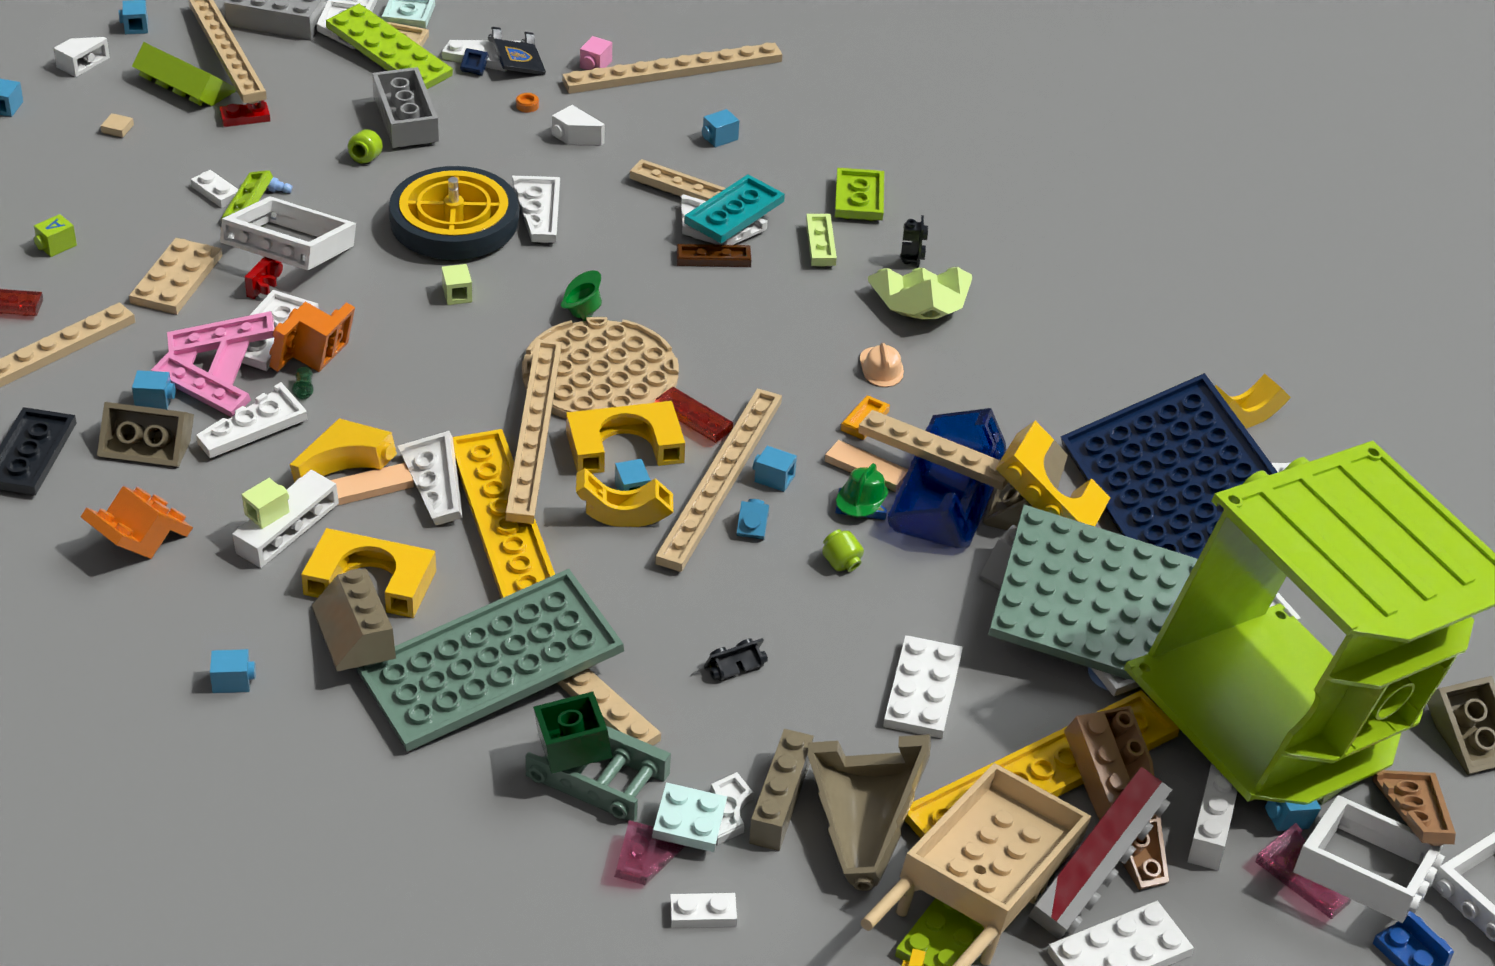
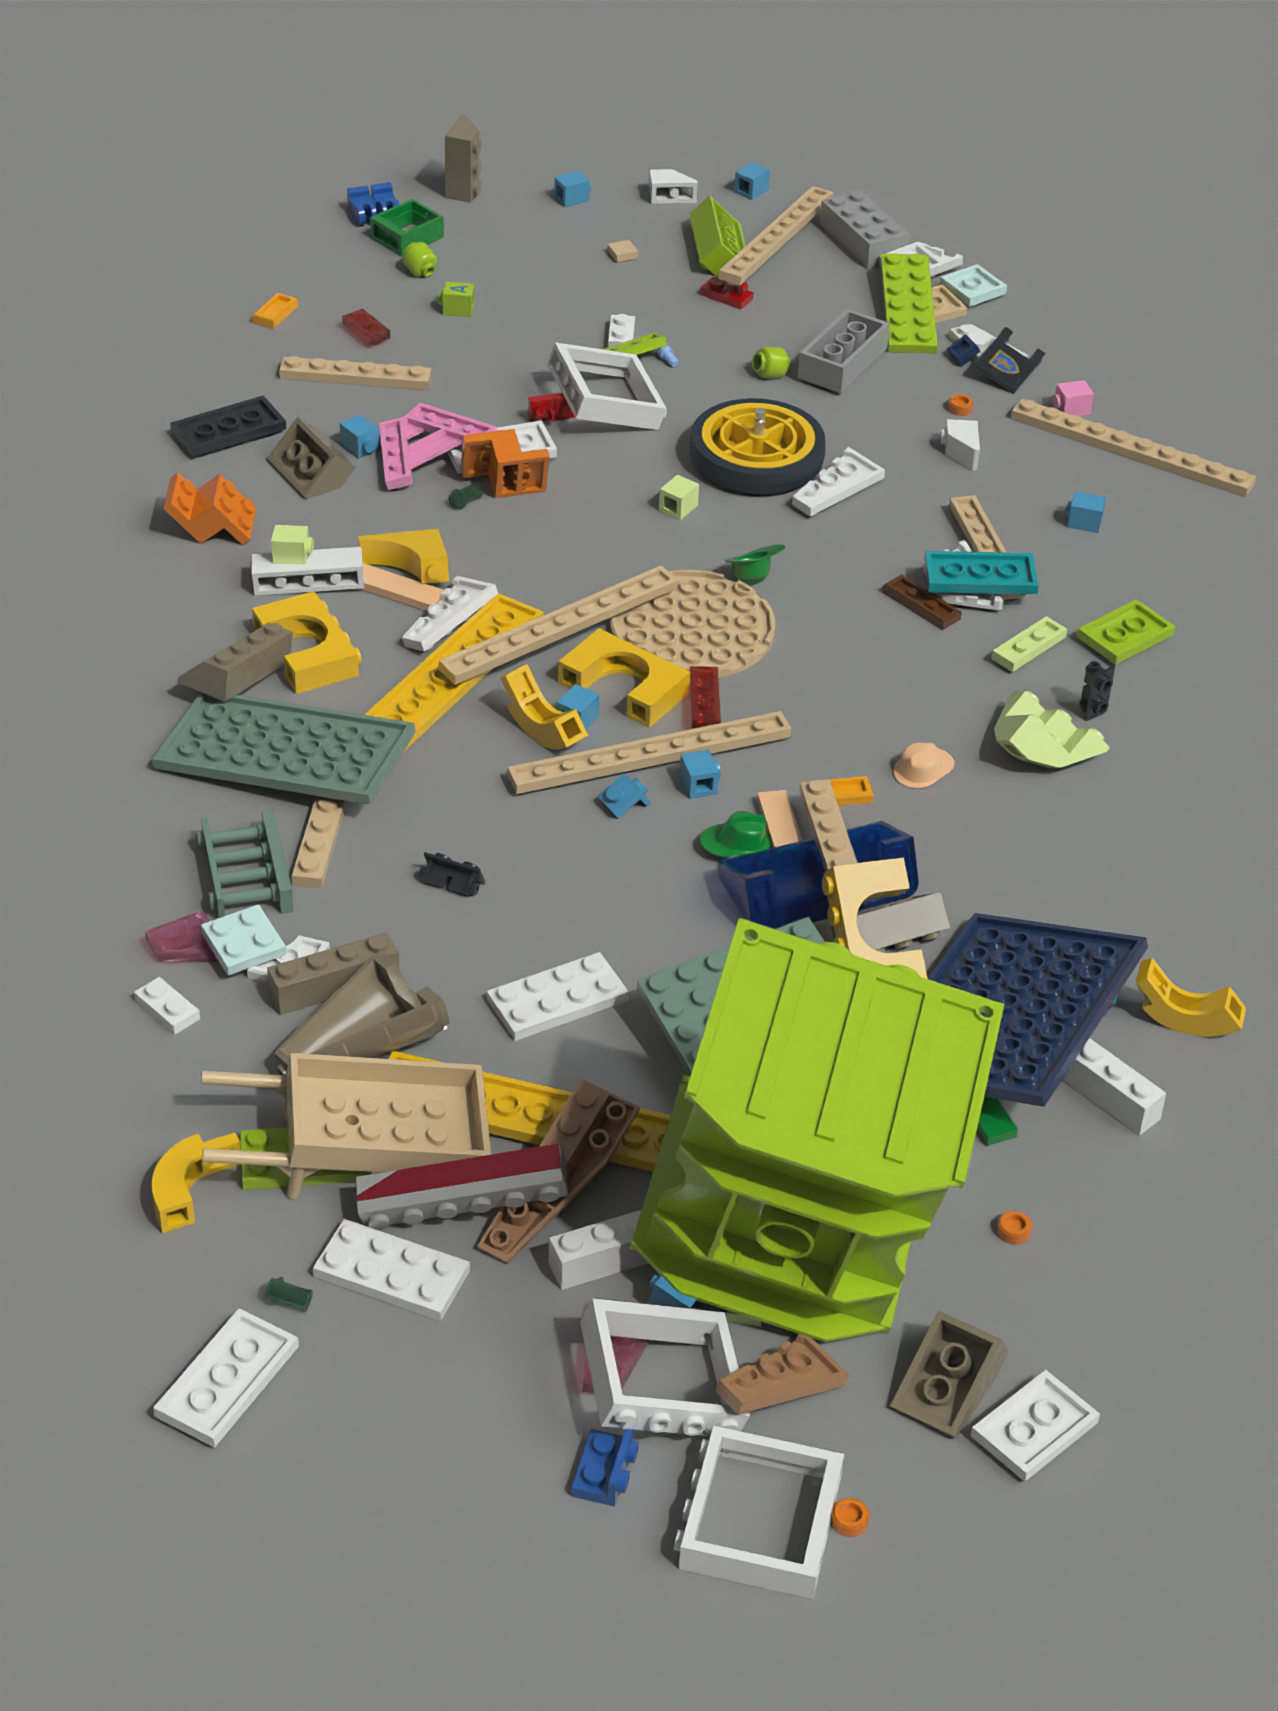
camera: 50 degrees right, 0 degrees up
(175, 276) = (499, 374): tan plate -> none
(231, 671) = (126, 639): dark azure brick -> none
(260, 419) = (390, 499): white wing -> none
(572, 732) = (235, 819): dark green brick -> none
(842, 550) = (651, 862): lime head -> none

